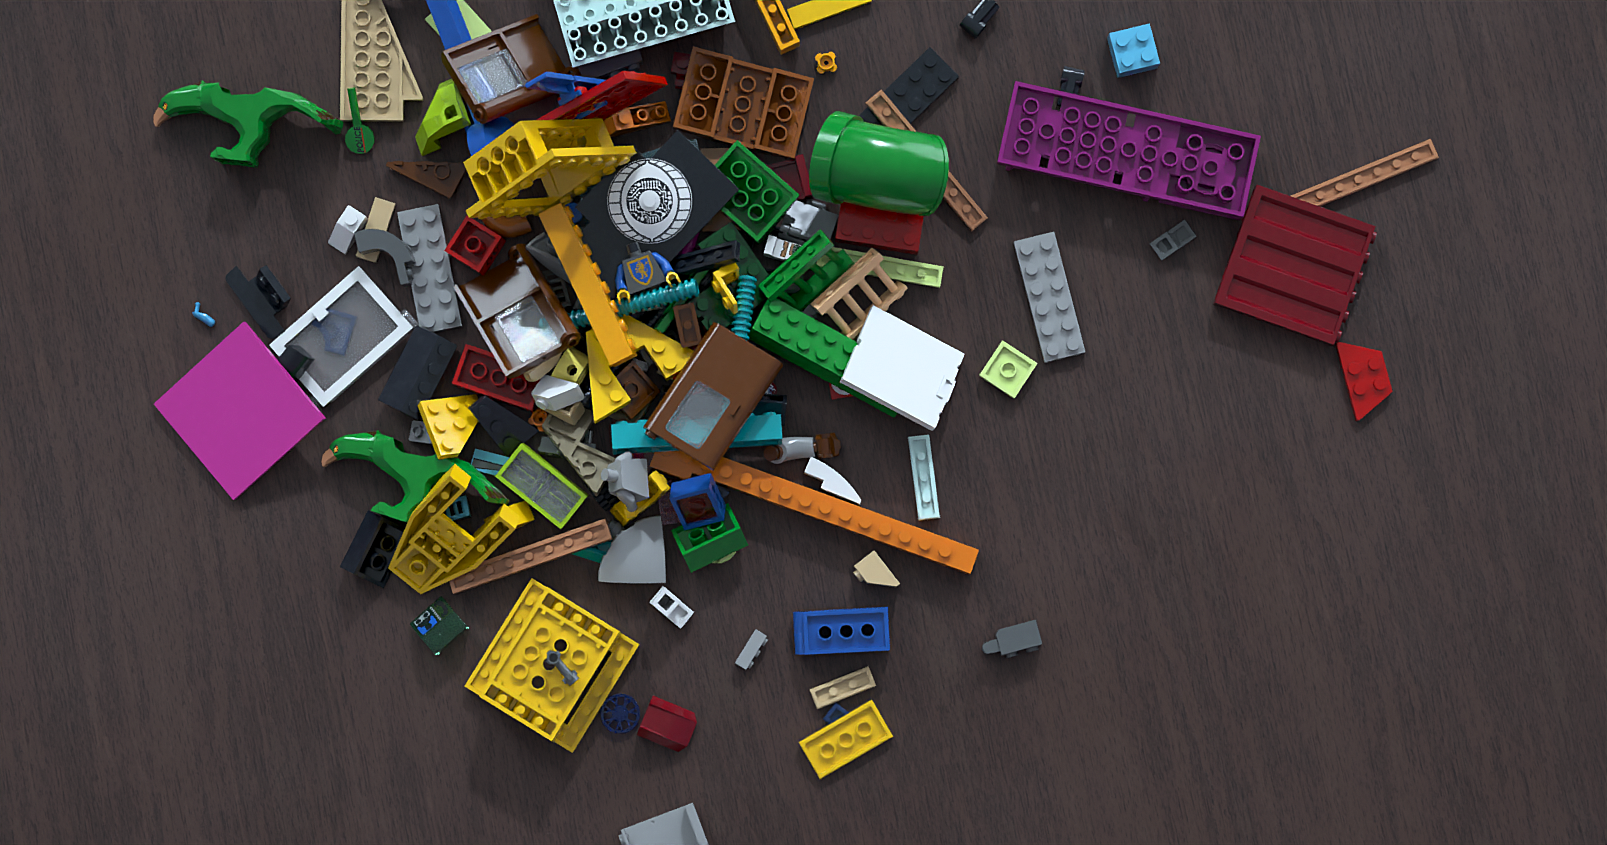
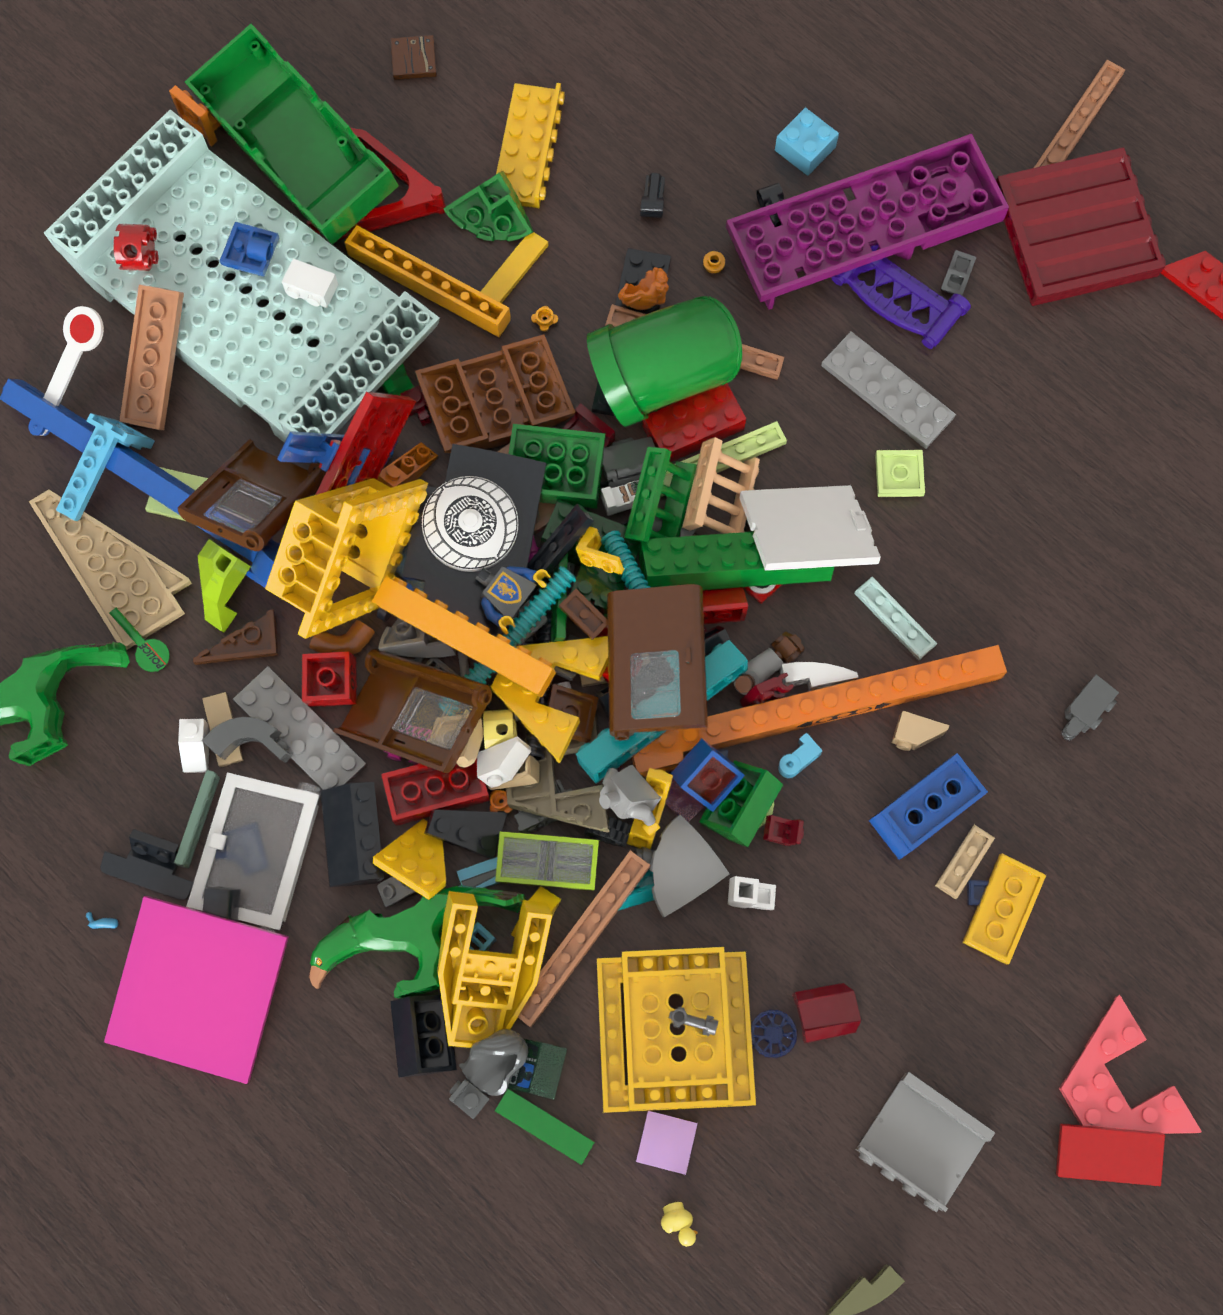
camera: 30 degrees left, 10 degrees down
(316, 286) = (197, 819): none -> sand green tile
(378, 613) = (468, 1098): none -> dark grey bracket
(413, 601) = (495, 1061): none -> dark grey piece
(418, 668) = (544, 1126): none -> green tile
(467, 792) = (679, 1219): none -> light yellow animal
(494, 736) = (666, 1142): none -> lavender tile
(679, 45) = (397, 382): none -> green panel
(727, 577) = (783, 830): none -> dark red bracket
(751, 650) = (854, 884): light grey piece -> none
(776, 534) = (794, 763): none -> medium azure leg
(784, 469) = (766, 690): none -> dark red plate
(796, 379) = (724, 605): none -> red slope
(913, 98) = (648, 292): none -> orange hair
(989, 109) = (714, 267): none -> light orange plate
(1136, 263) = (942, 313): none -> dark purple piece

